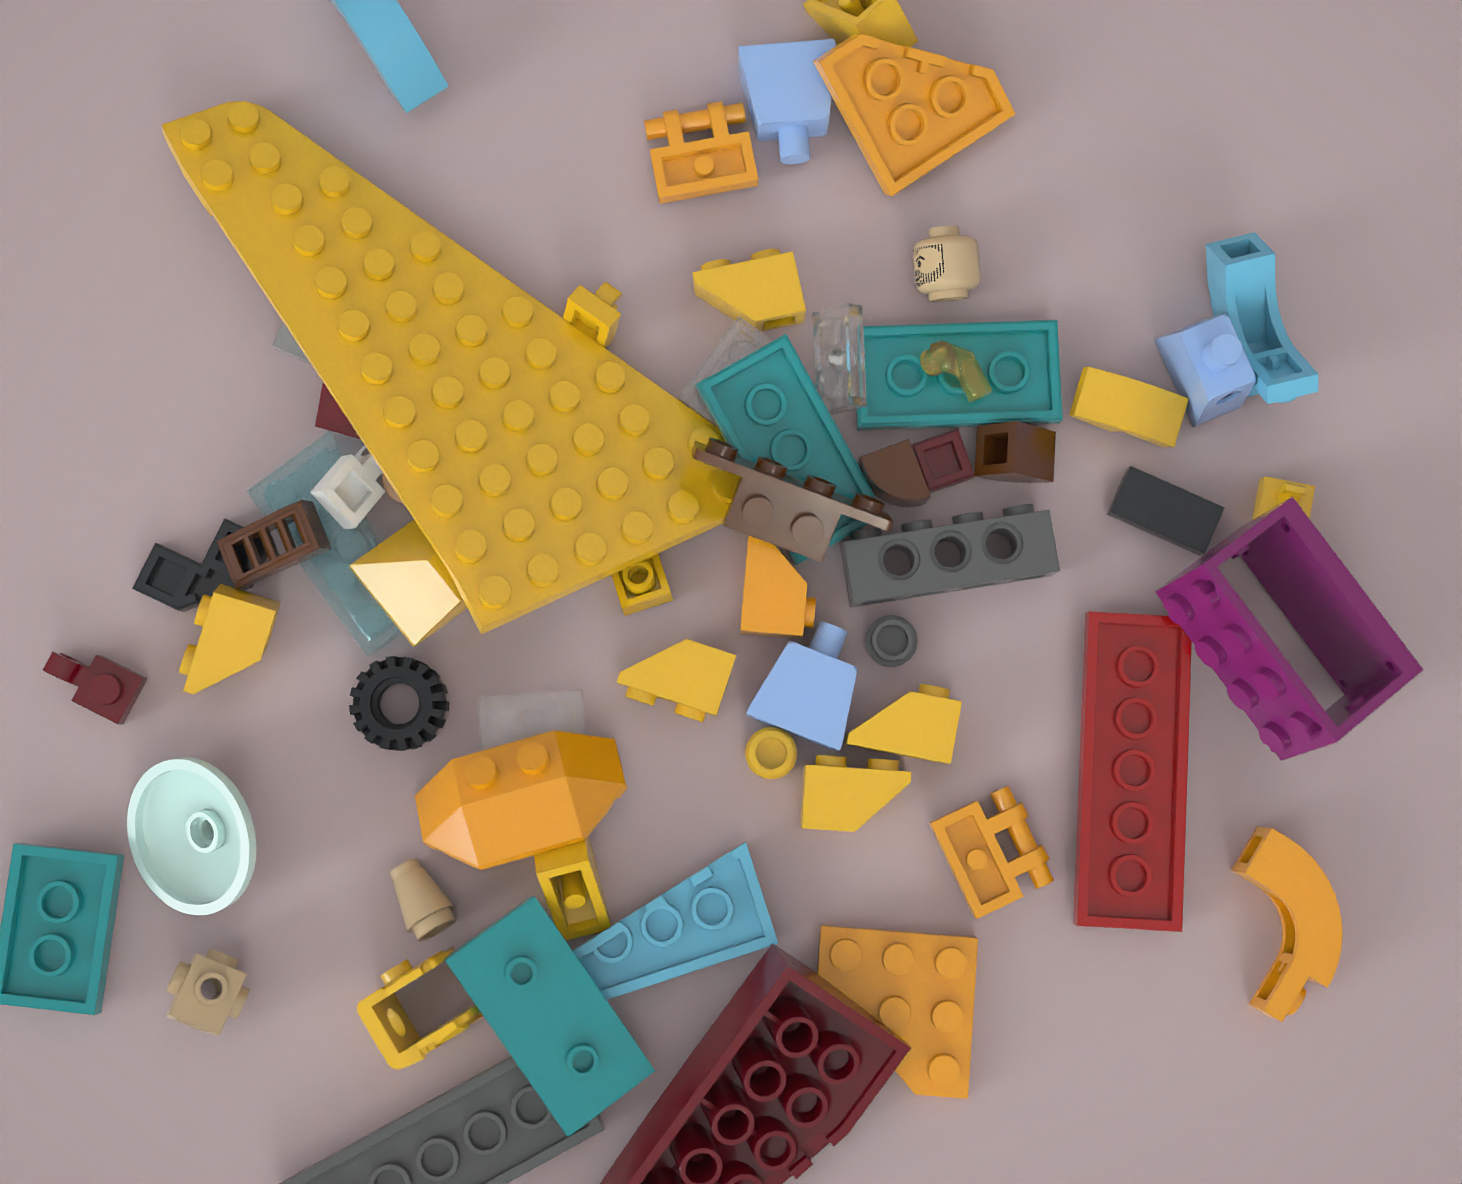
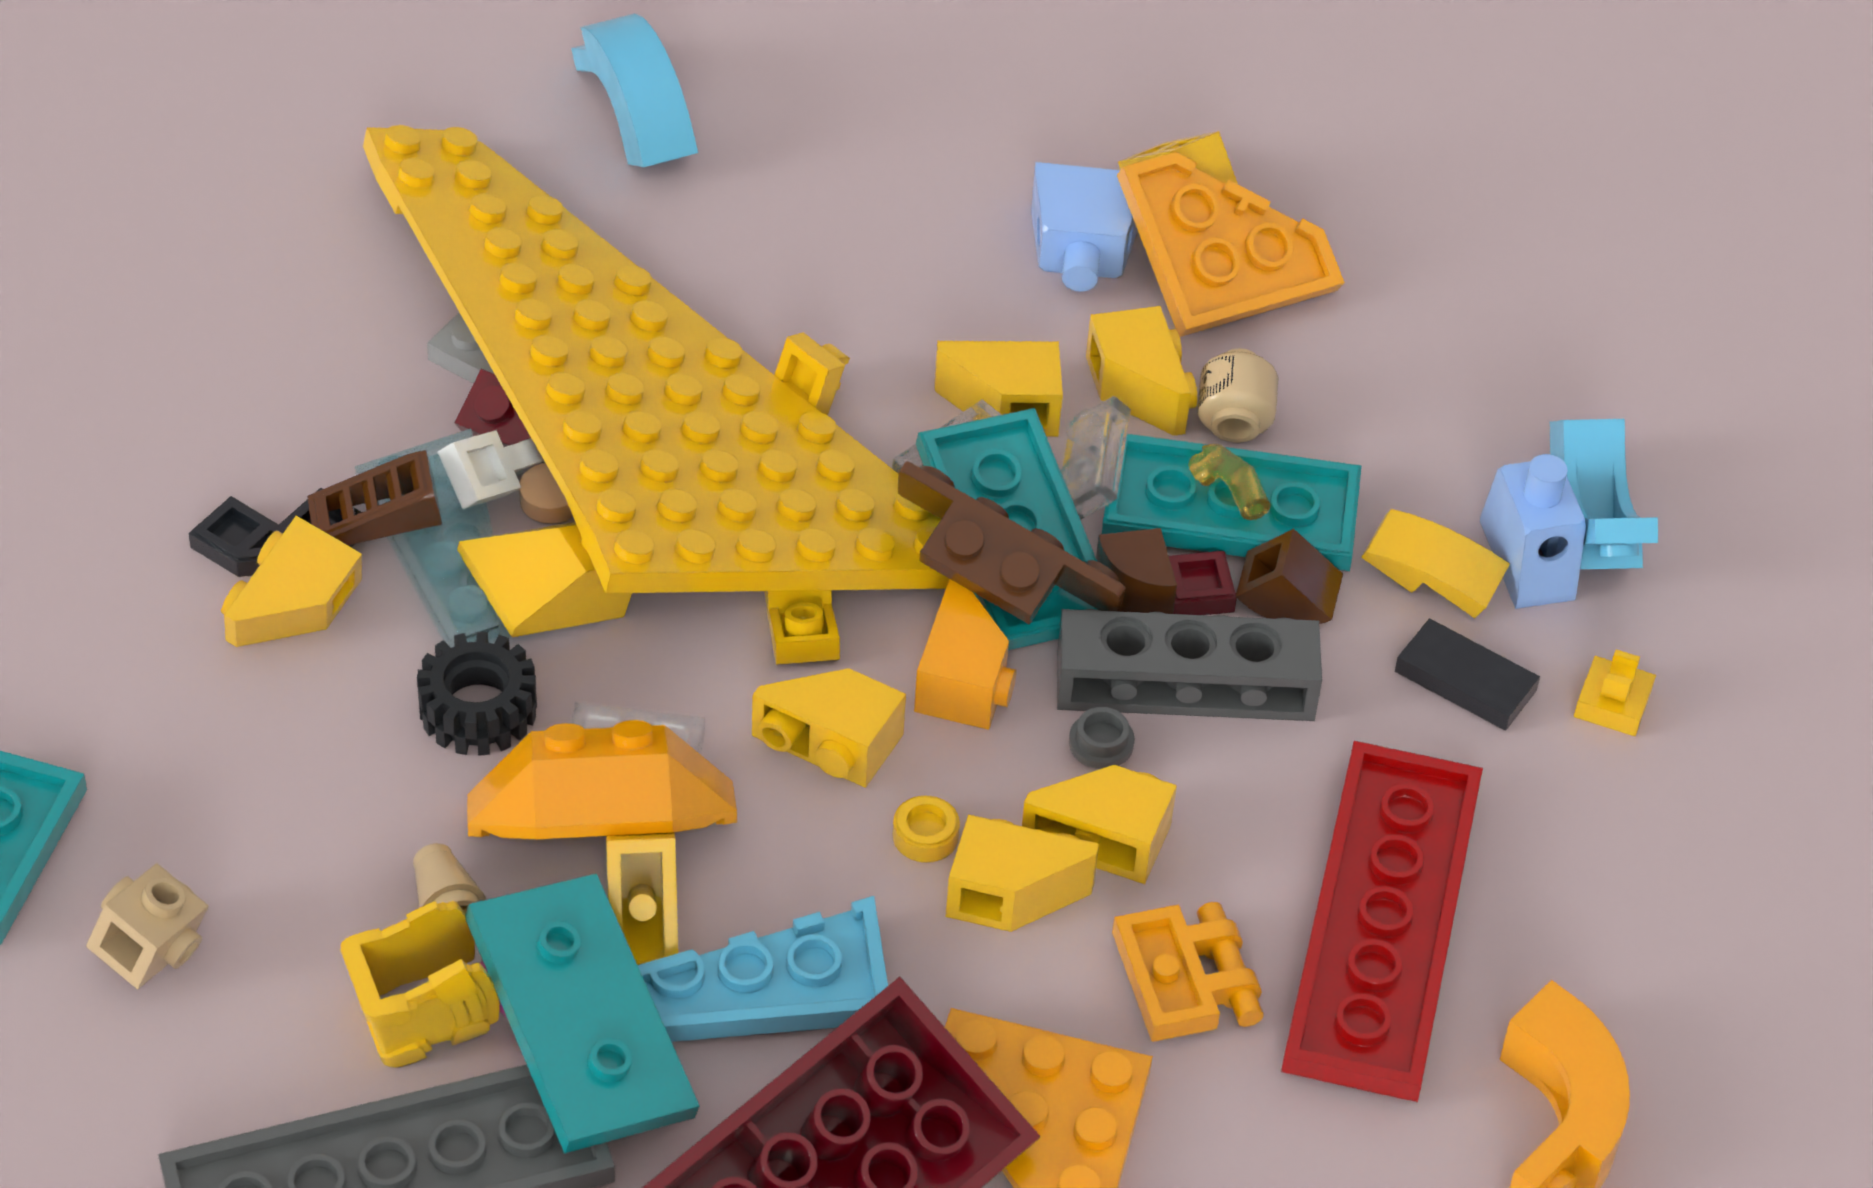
camera: 10 degrees right, 35 degrees down
(102, 687) = (117, 624): dark red plate -> none
(191, 836) = (185, 758): light aqua dish -> none
(701, 165) = (971, 261): light orange plate -> none
(809, 689) = (983, 757): light blue torso -> none
(859, 247) = (1140, 364): none -> yellow slope
(1324, 609) = (1594, 774): magenta hose -> none

